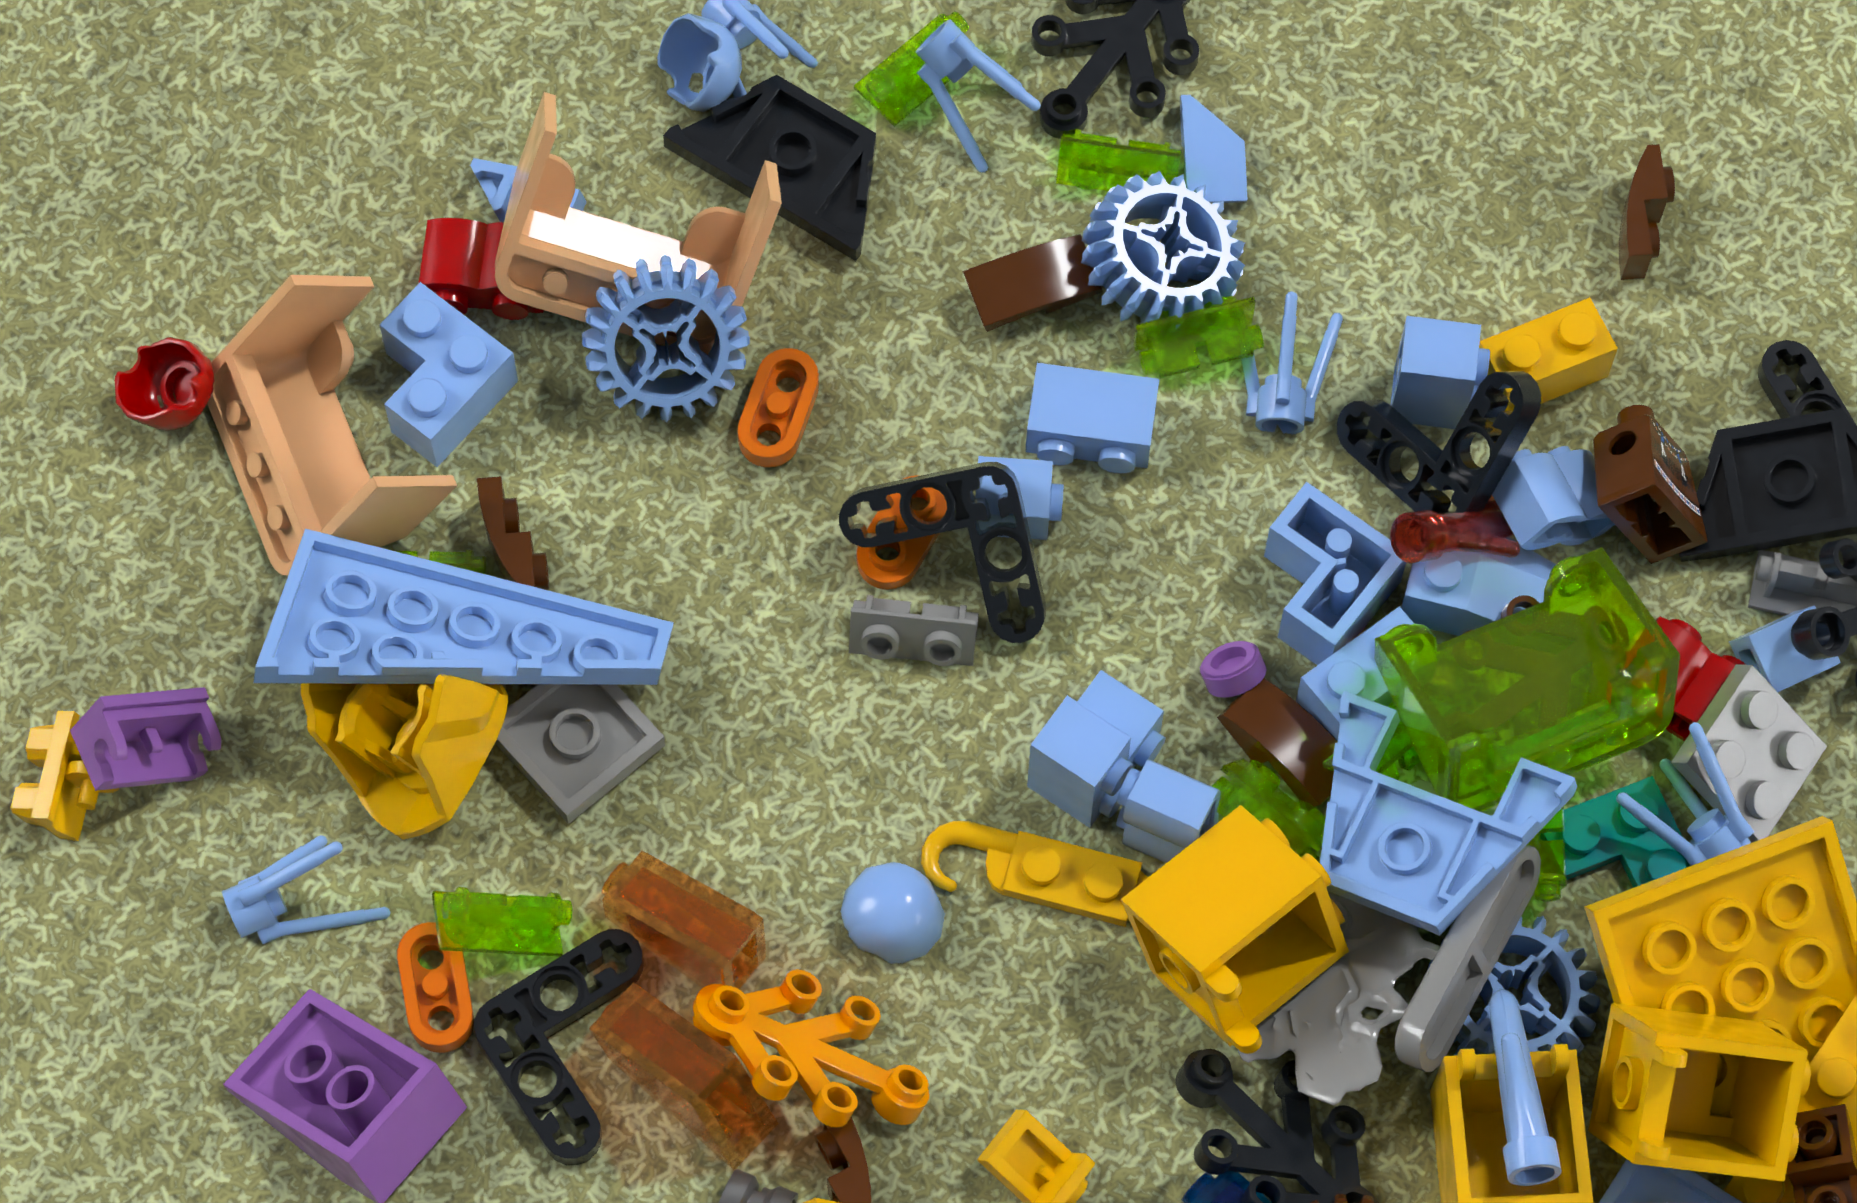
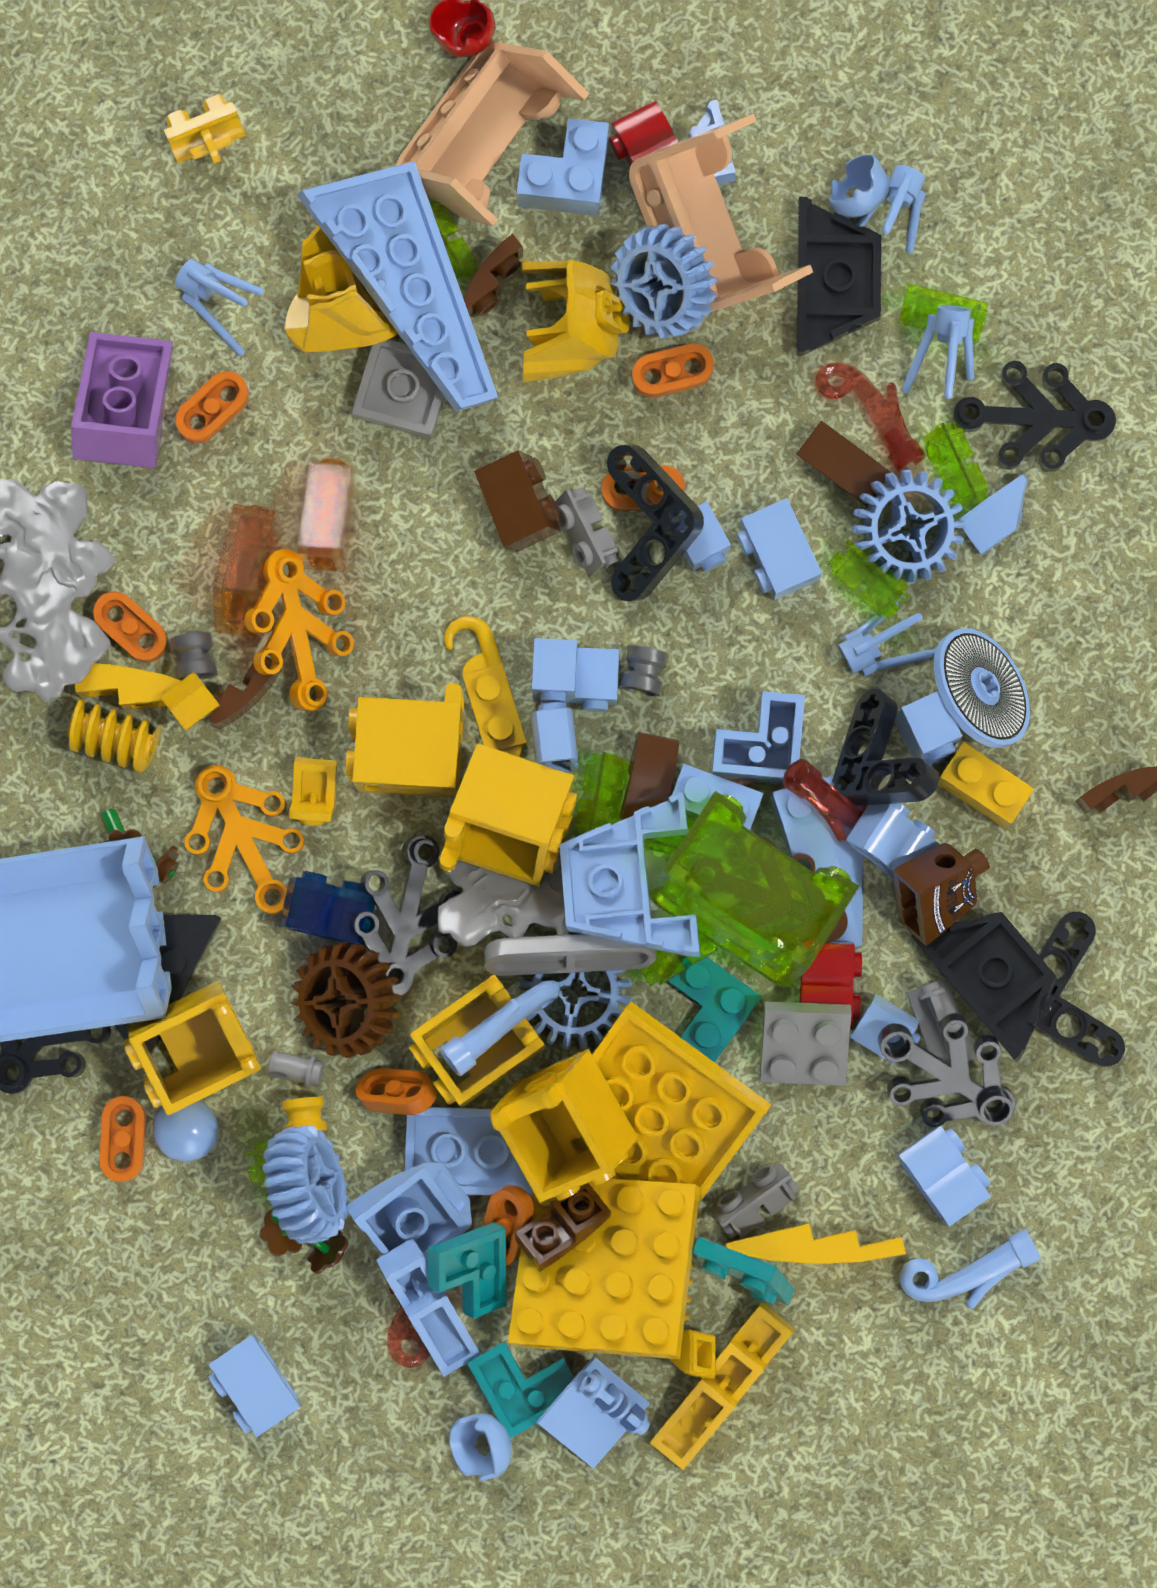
camera: 60 degrees right, 15 degrees up
(146, 738) = (246, 160): medium lavender hinge -> none
(500, 922) = (267, 417): clear neon green hinge -> none
(540, 1023) = (228, 475): black beam -> none
(666, 476) = (586, 330): none -> yellow piece
(823, 678) = (519, 500): none -> reddish brown brick
(893, 912) = (412, 624): light blue hair -> none
(993, 206) = (883, 413): none -> clear red plant
(1060, 998) = (407, 745): none -> yellow container
(1140, 662) = (644, 667): none -> flat silver wheel
(1233, 669) = (674, 723): medium lavender tile -> none
(1424, 283) = (981, 688): none -> piece
(1711, 831) = (744, 1052): light blue plant -> none

